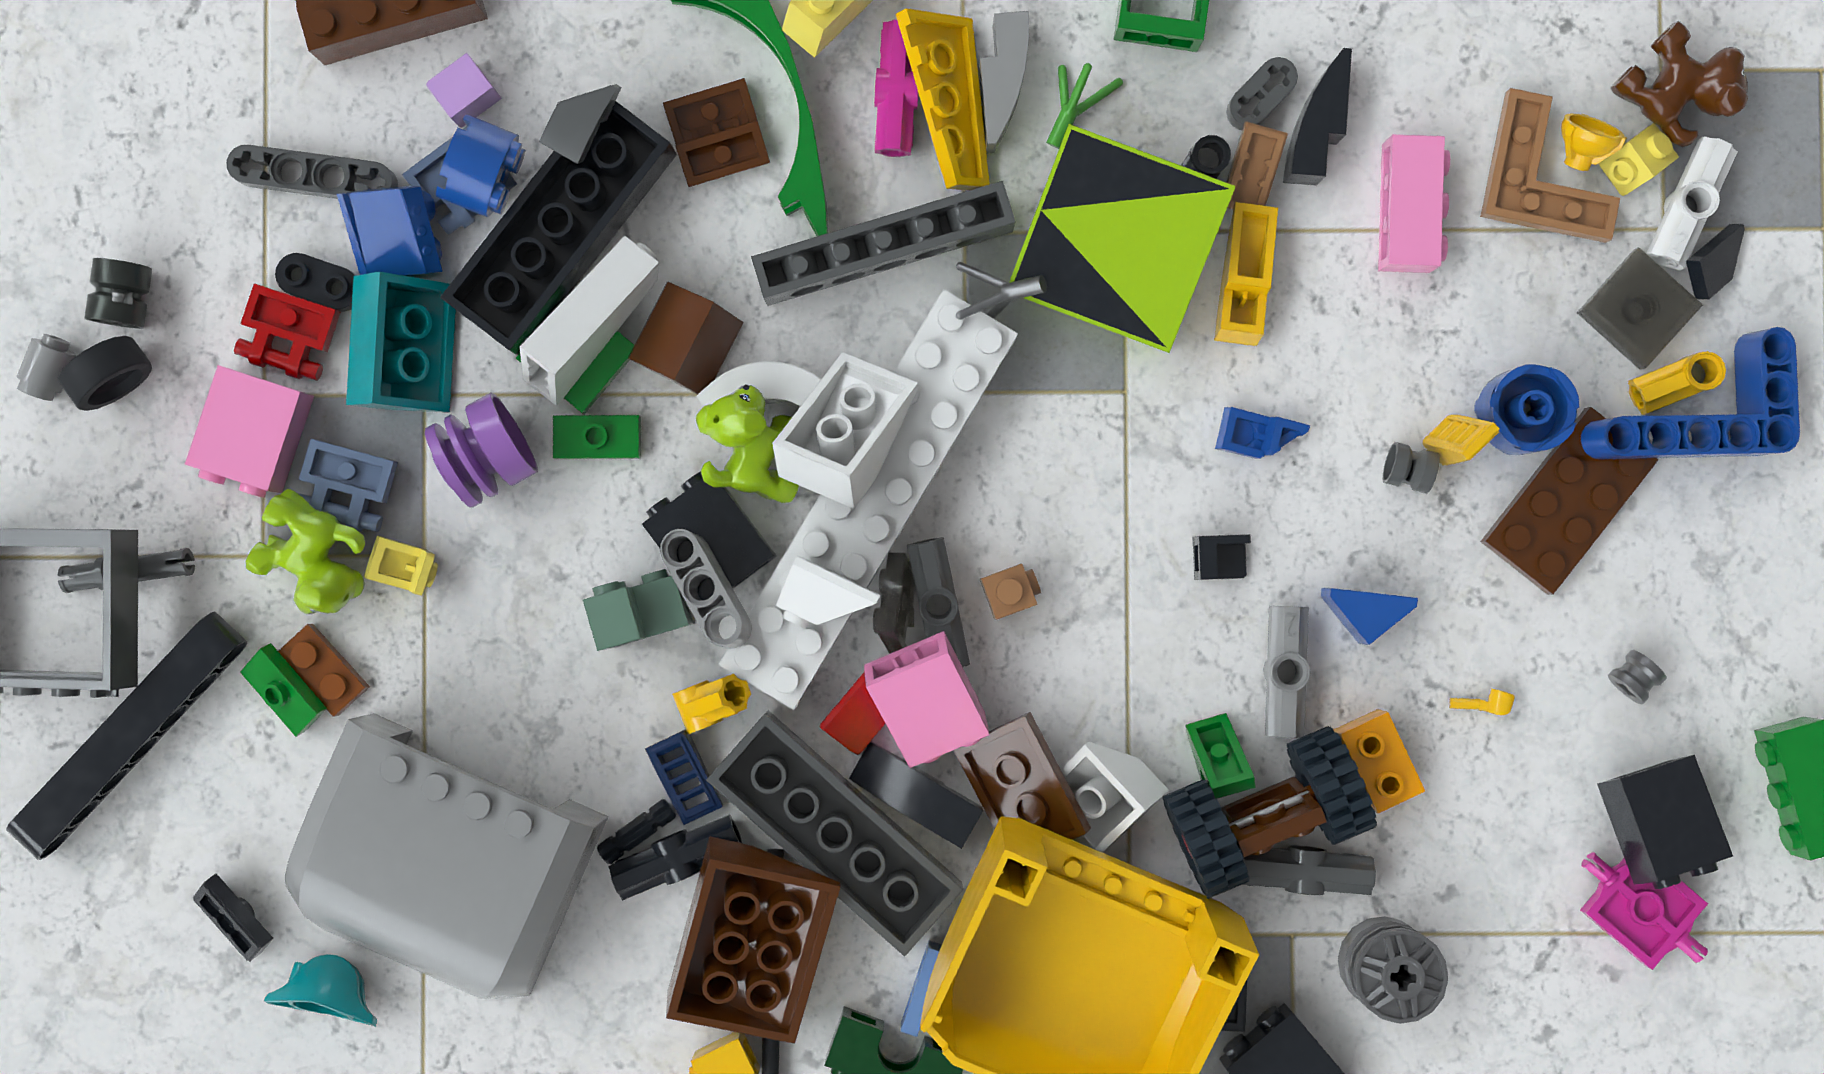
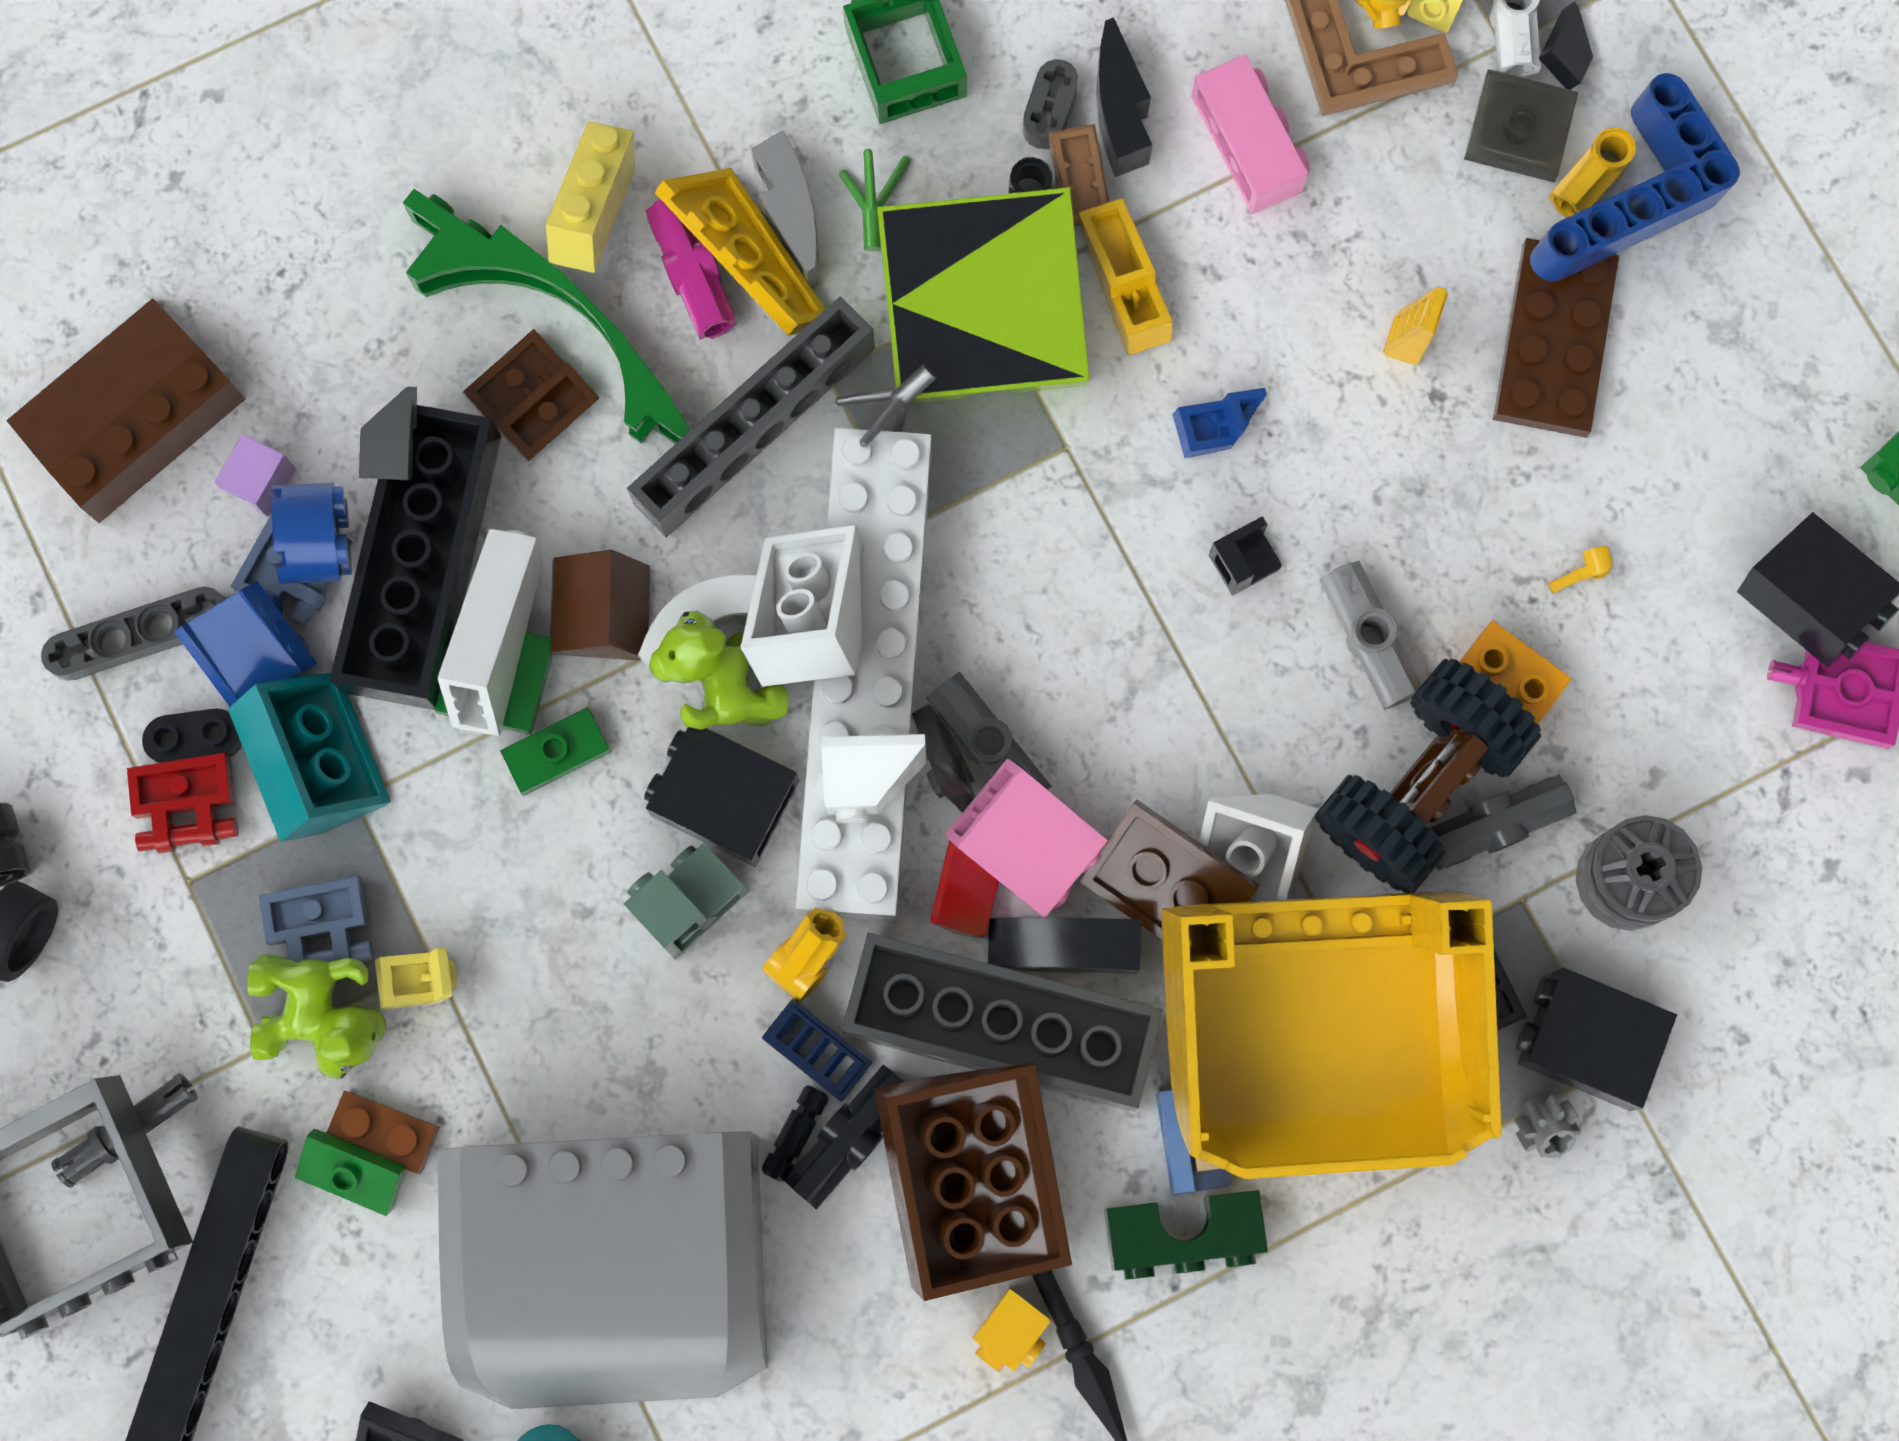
camera: 25 degrees left, 10 degrees down
(248, 432) = (190, 920): bright pink brick -> none
(474, 454) = (444, 815): medium lavender wheel -> none
(688, 577) = (728, 816): light grey beam -> none
(1010, 590) = (1053, 692): medium nougat brick -> none
(1220, 756) = (1350, 748): green slope -> none
(1367, 613) = (1416, 538): blue slope -> none
(1411, 467) = (1385, 379): dark grey wheel -> none
(1551, 415) = (1482, 246): blue brick -> none
(1637, 677) = (1716, 469): flat silver wheel -> none

